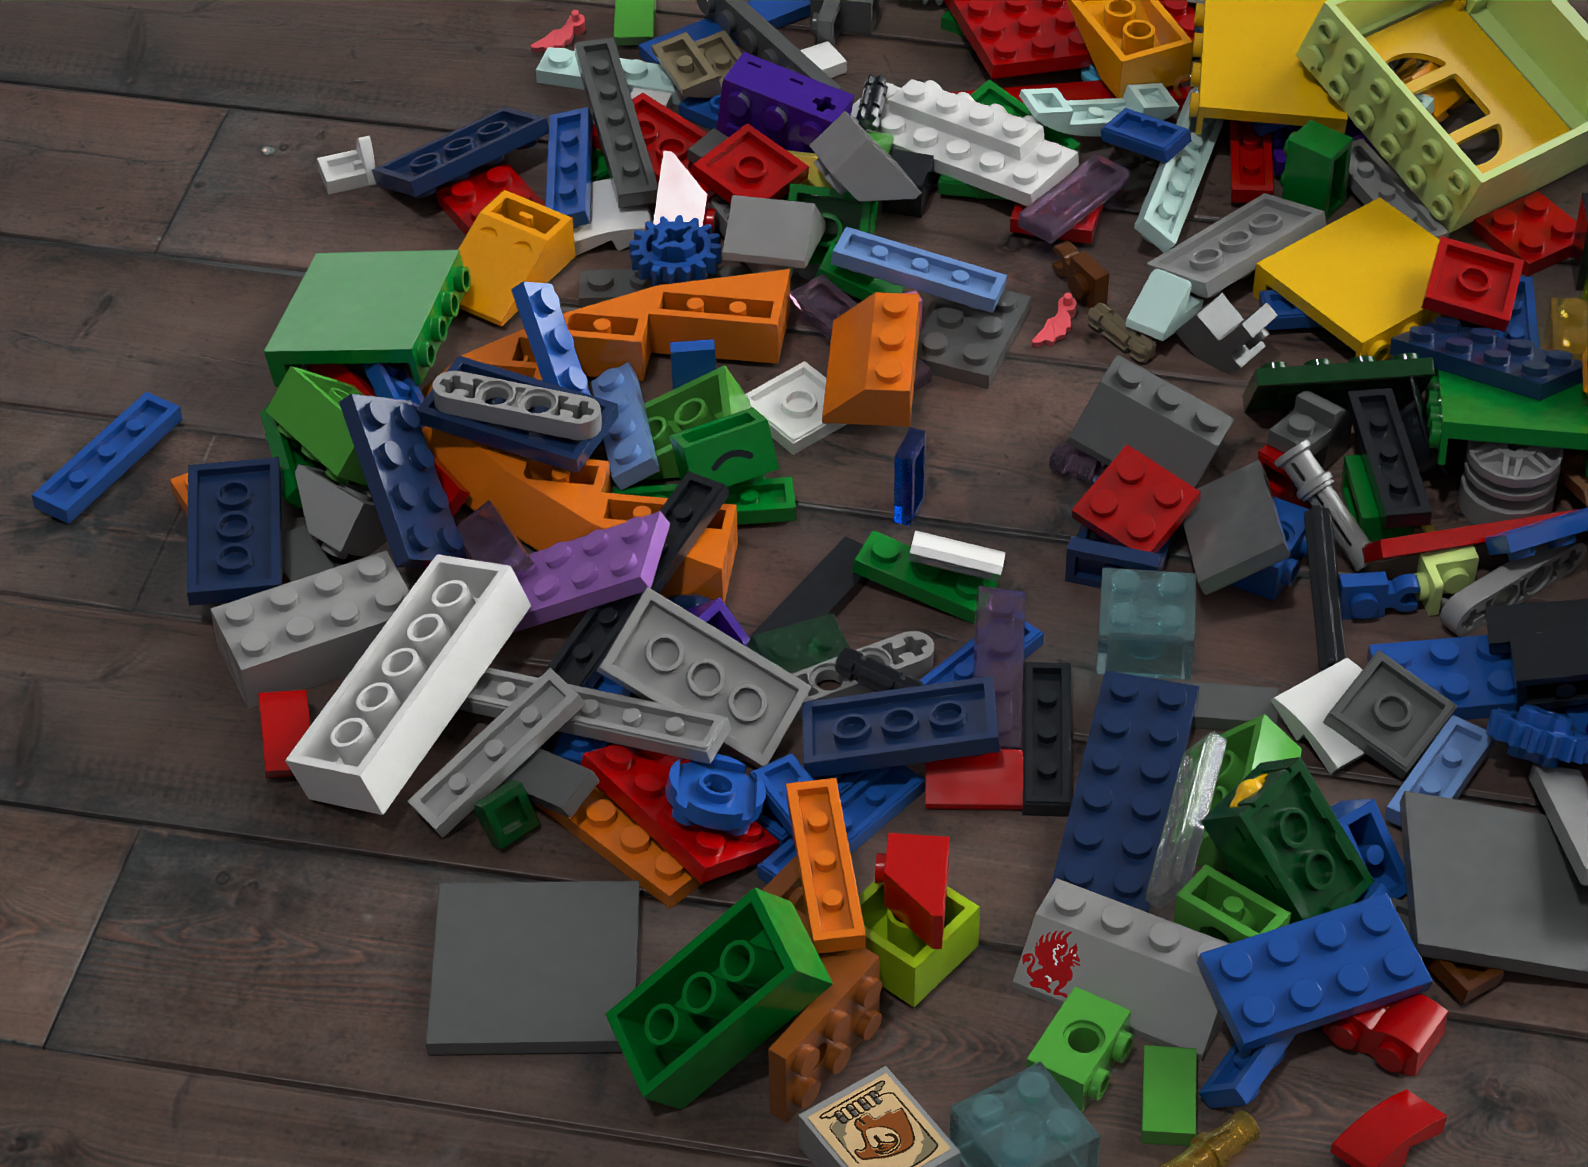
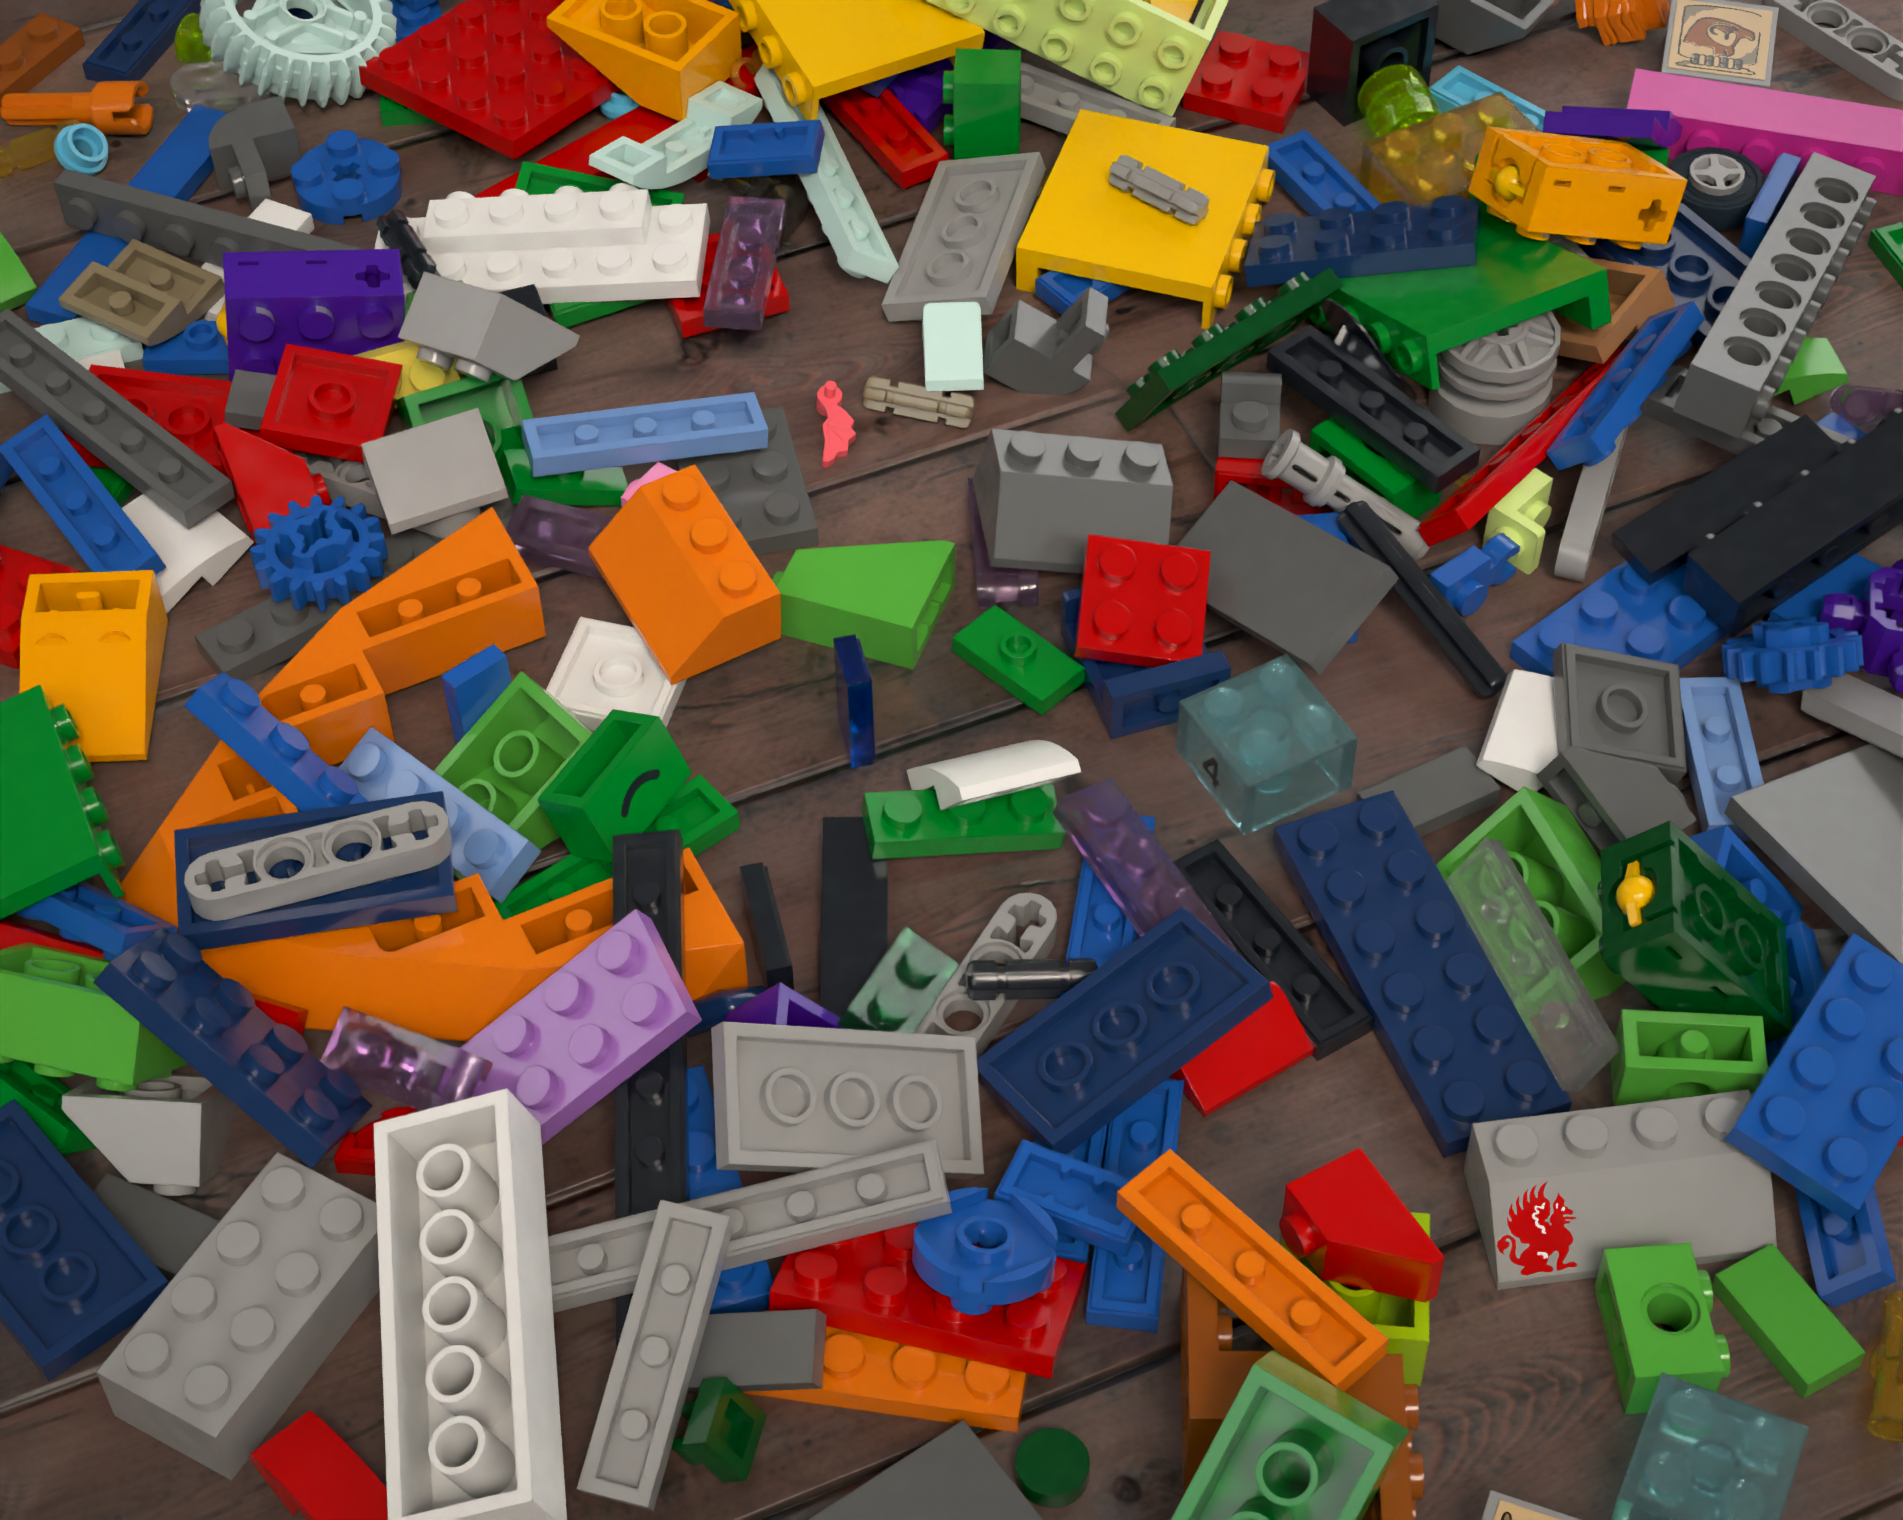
camera: 35 degrees left, 5 degrees up
(667, 931) = (1052, 1467): none -> dark green tile
(755, 579) = (766, 926): none -> black tile
(871, 47) = (347, 178): none -> blue plate
(982, 428) = (876, 591): none -> bright green slope
(1045, 507) = (1018, 659): none -> green plate
(1085, 276) = (824, 351): reddish brown plate -> none
(1336, 758) = (1613, 795): none -> dark grey slope
(1378, 267) = (1159, 190): none -> light grey axle
(1473, 284) = (1276, 164): red plate -> none

